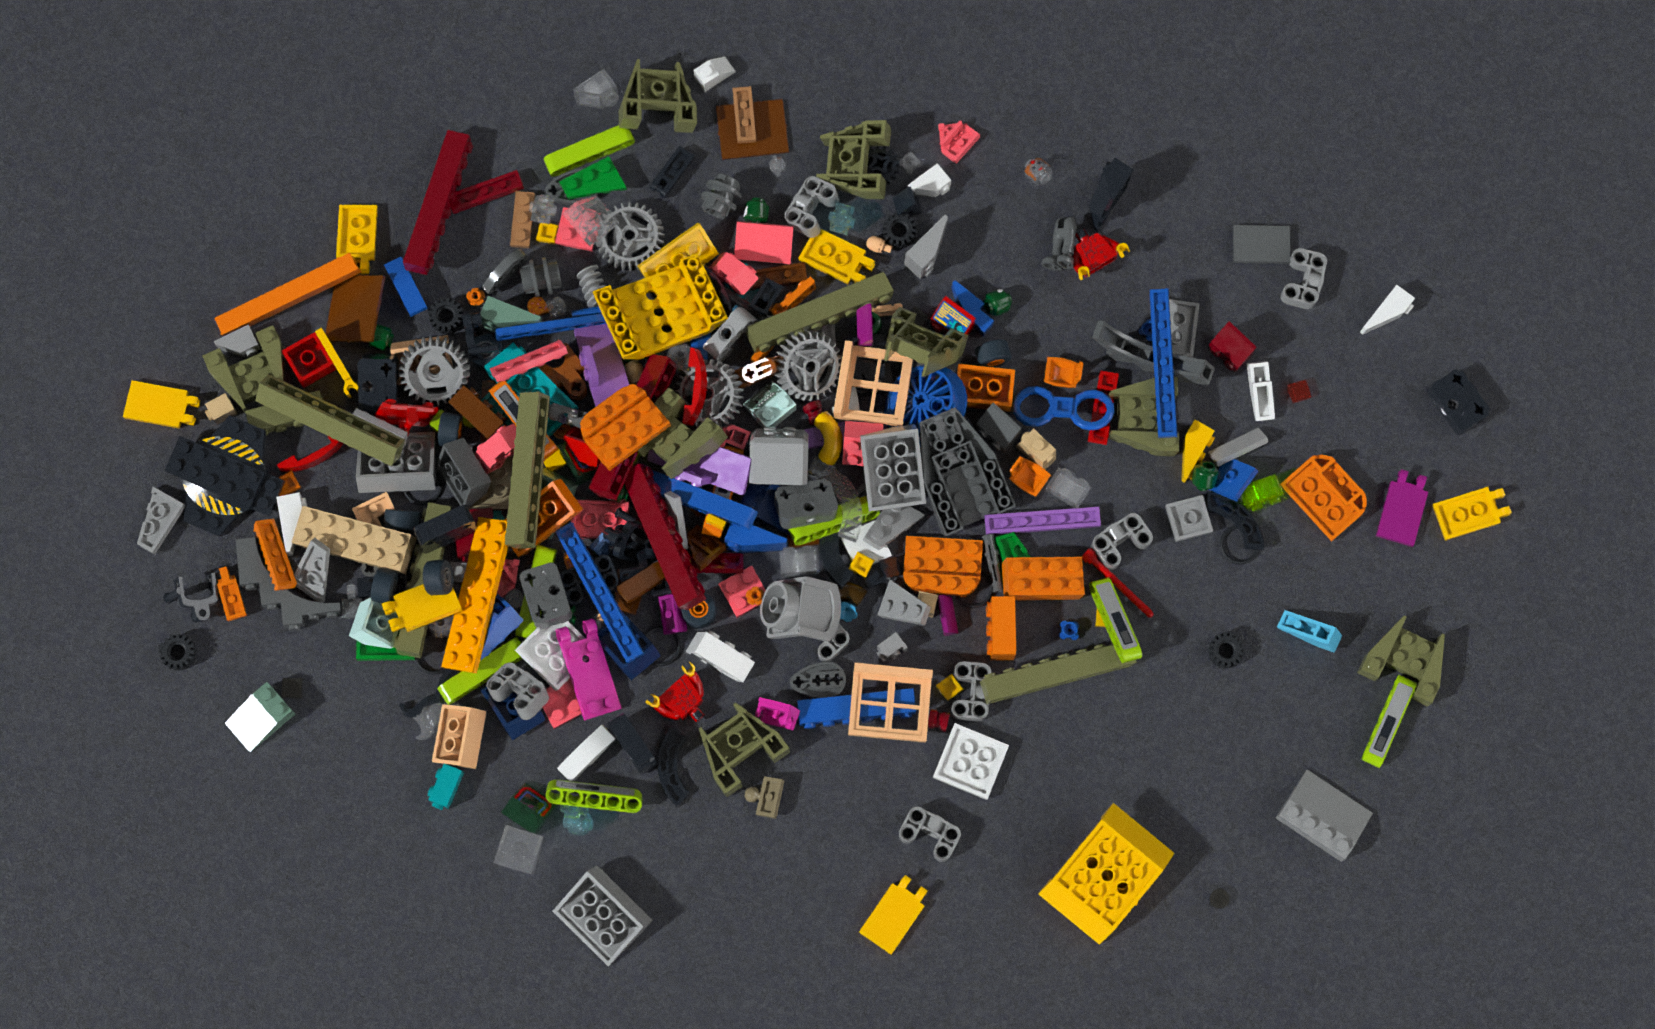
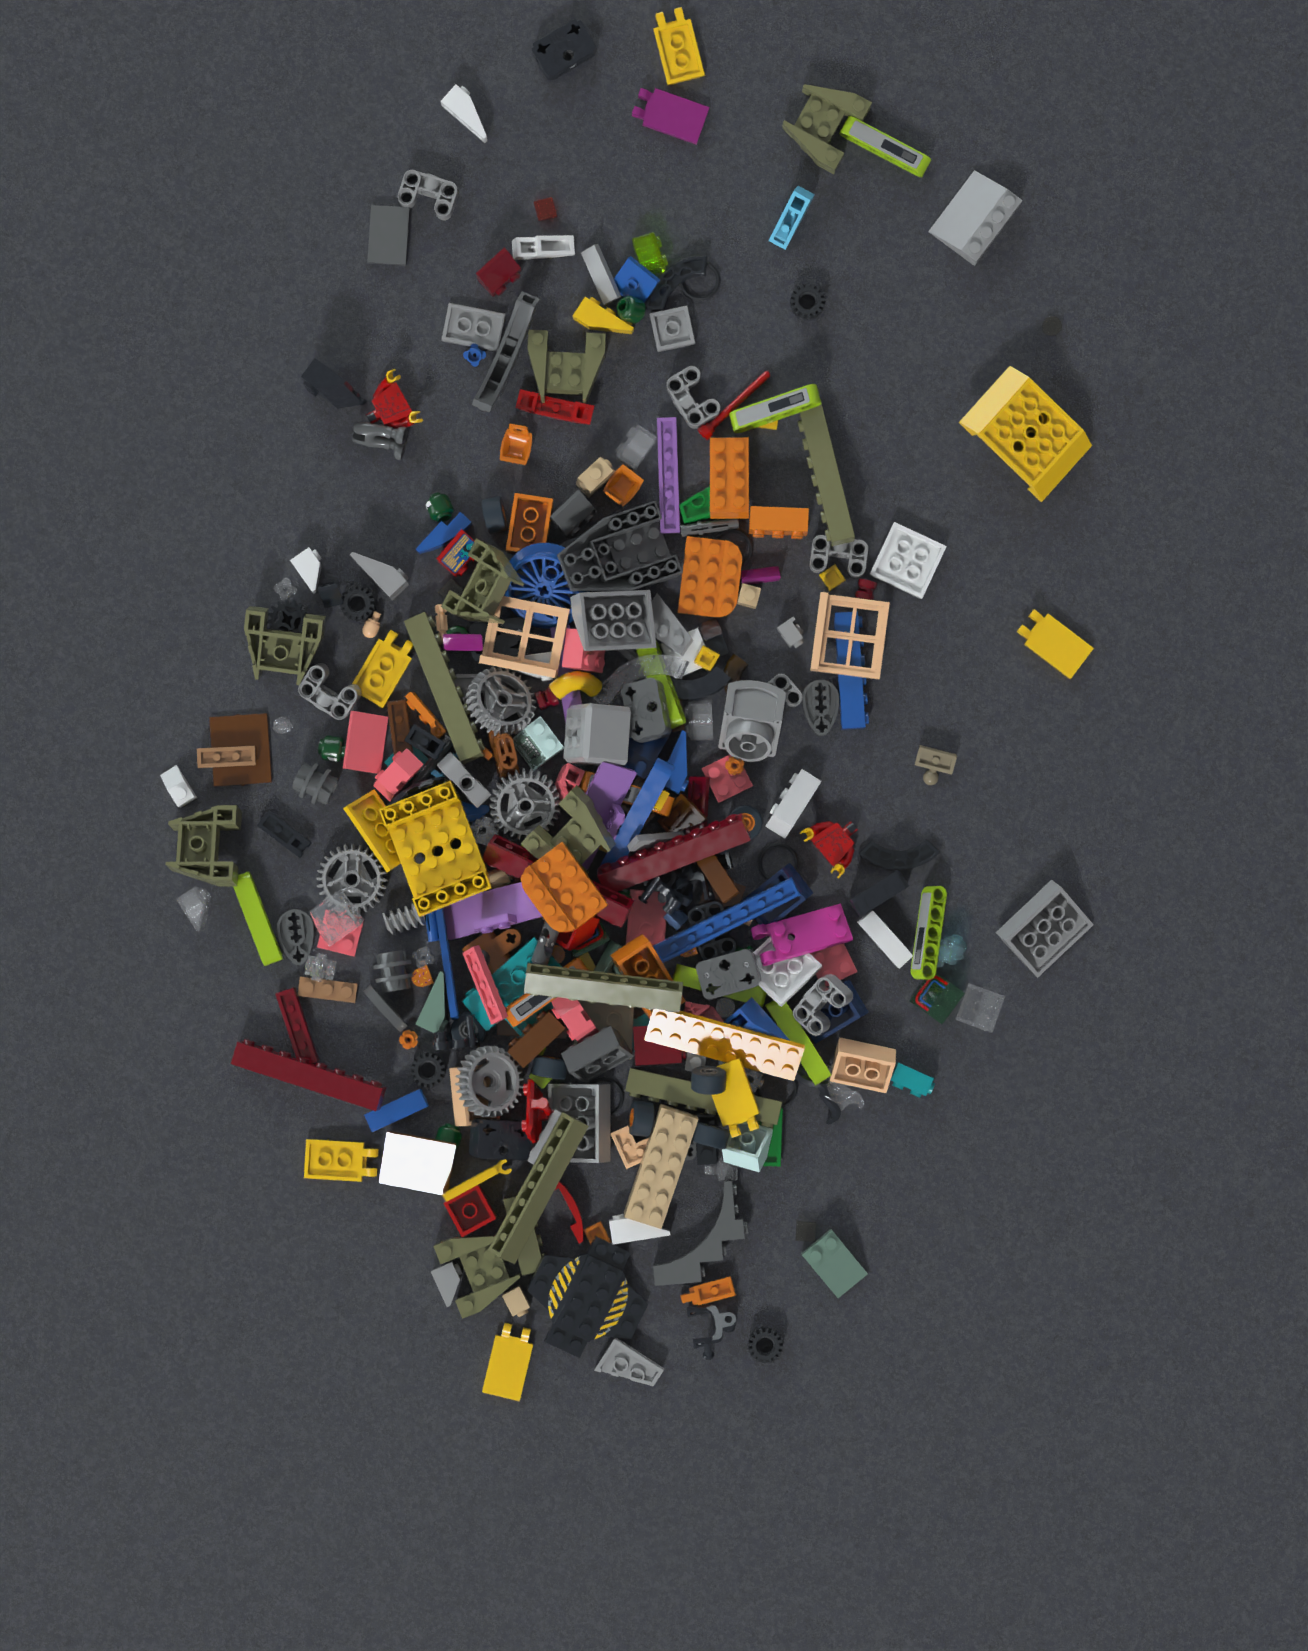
camera: 80 degrees left, 10 degrees up
(274, 554) = (672, 1246): orange gear -> none
(288, 294) = (401, 1231): orange tile -> none
(313, 570) = (691, 1207): light grey wing -> none
(445, 529) = (657, 1072): black axle -> none
(547, 233) = (344, 964): yellow tile -> none
(594, 179) = (290, 913): green wing -> none
(671, 615) = (750, 851): magenta slope -> none
(692, 412) = (496, 813): red slope -> none
(736, 742) = (880, 789): olive wedge -> none
(777, 713) = (854, 748): dark pink hinge -> none
(841, 222) = (344, 661): clear light blue brick -> none
(848, 611) = (753, 673): dark azure plant -> none
(903, 606) = (751, 619): light grey wing -> none
(933, 826) = (970, 600): light grey beam -> none
(956, 140) = (262, 539): coral slope -> none
(1038, 171) = (301, 457): clear head -> none
(1063, 407) = (553, 447): blue bar -> none
(1069, 625) = (780, 460): blue plate -> none
(1163, 363) = (515, 342): blue tile -> none
(1326, 494) = (654, 189): orange plate -> none

